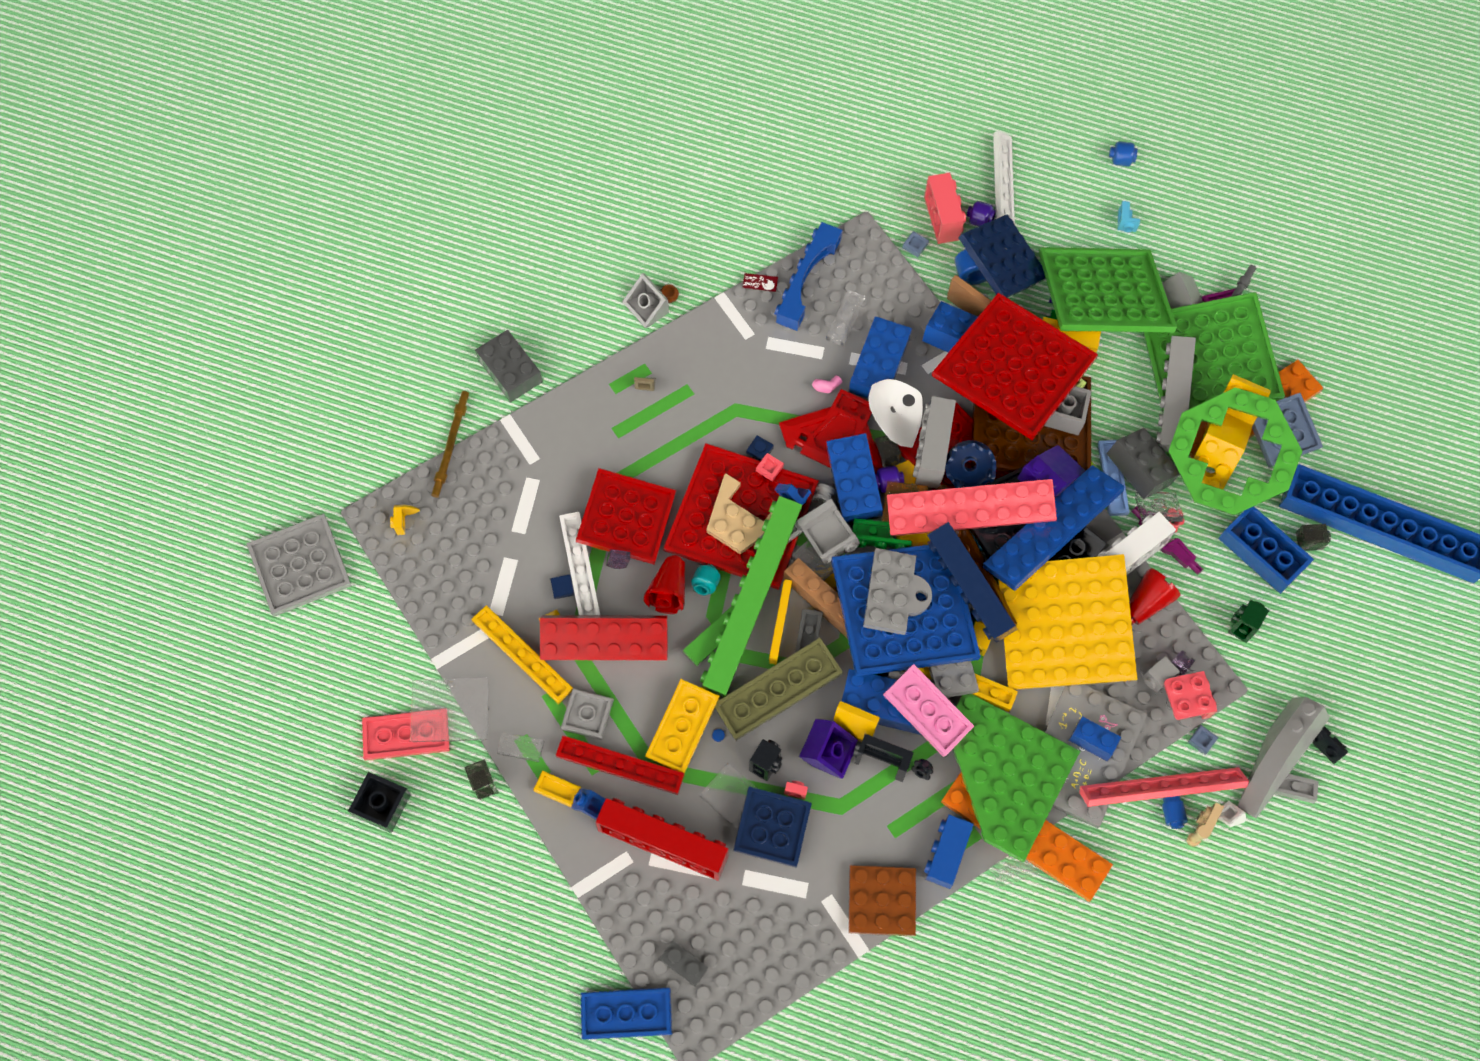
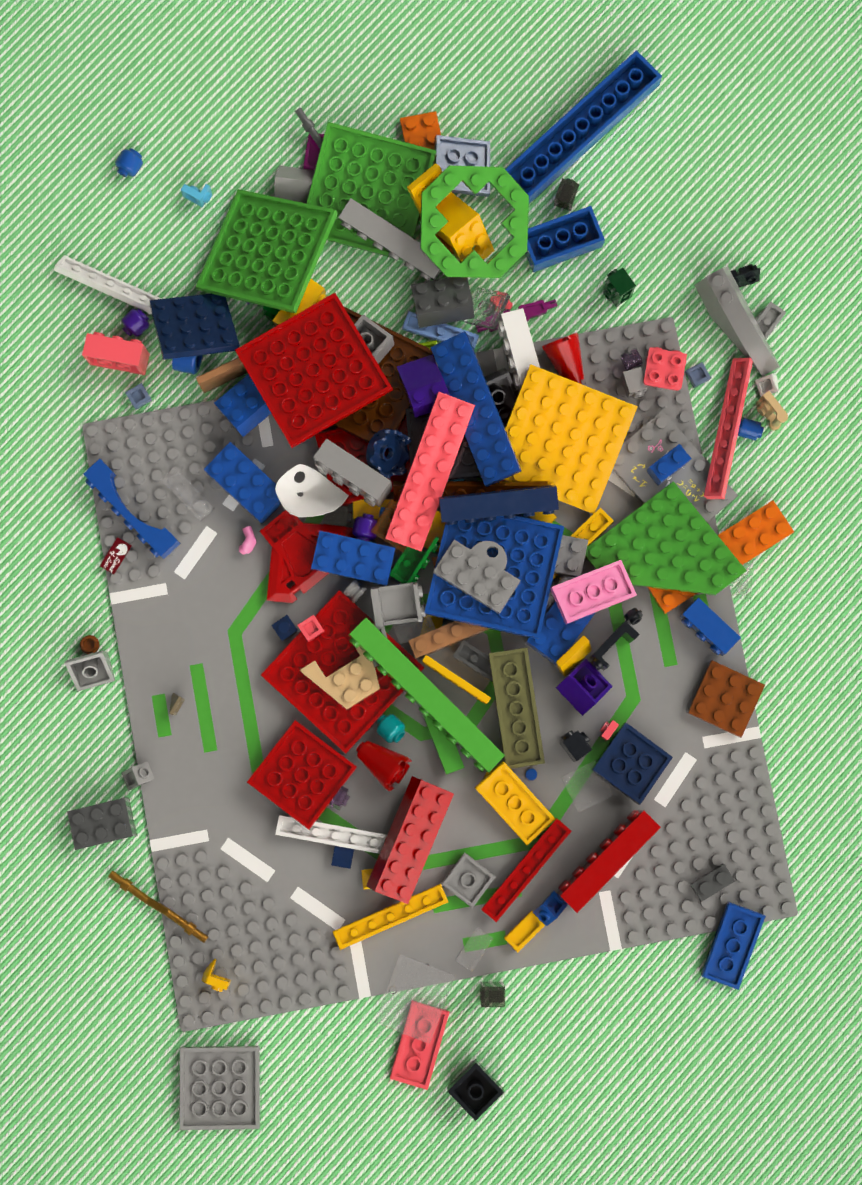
camera: 65 degrees left, 15 degrees up
(566, 378) = (137, 775): none -> light grey bracket
(792, 493) = (349, 618): blue bracket -> none

